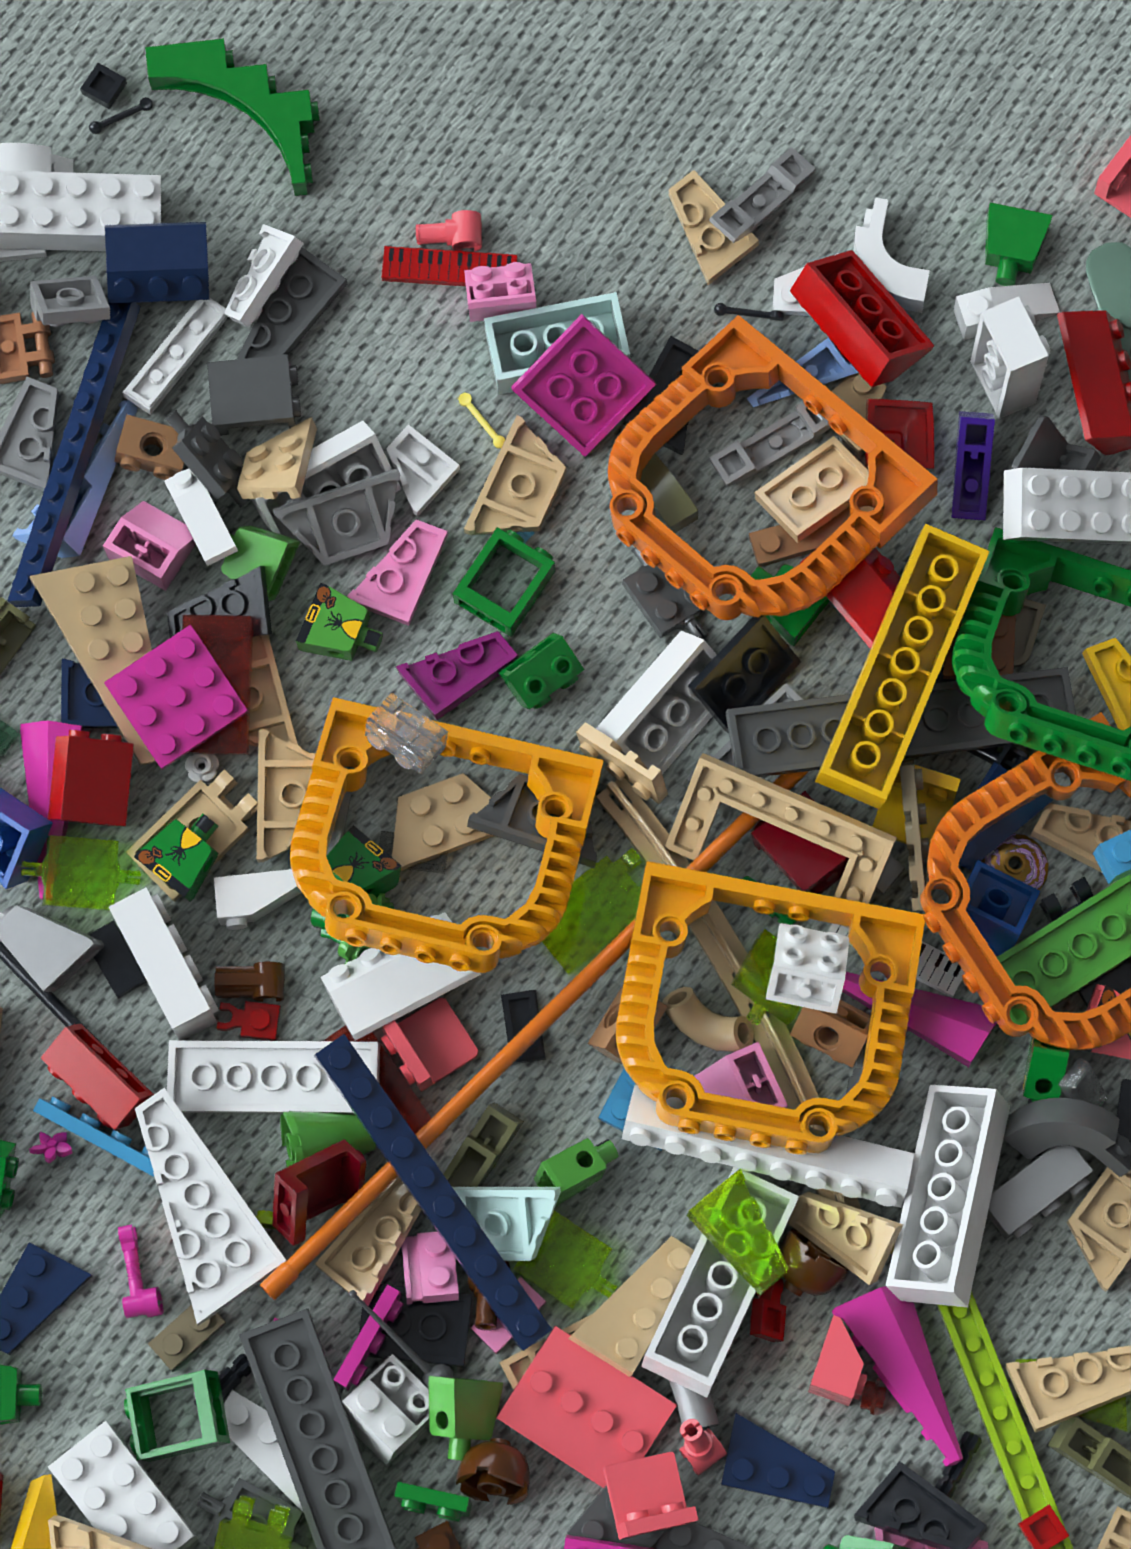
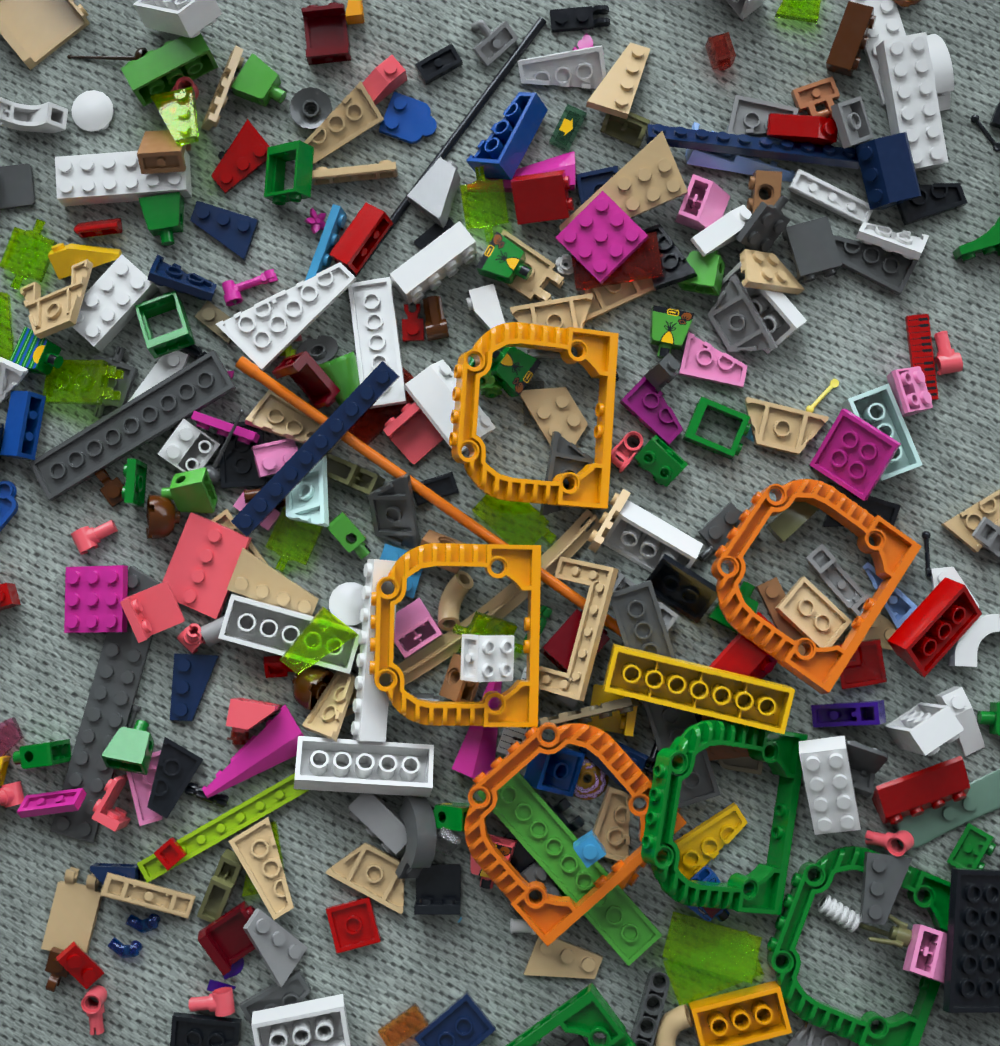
camera: 80 degrees right, 10 degrees up
(63, 374) = (802, 128): none -> red slope
(101, 1391) = (173, 277): none -> dark blue wing
(211, 202) = (933, 201): none -> black wing
(259, 1172) = (320, 349): none -> dark grey dish
(402, 644) = (663, 372): none -> dark grey brick
(405, 734) = (599, 380): clear brick -> none
(421, 467) = (782, 362): white wing -> none
(520, 723) = (625, 452): none -> coral piece
(554, 1088) = (395, 512): none -> dark grey wing
(681, 1184) = (347, 602): none -> white dish

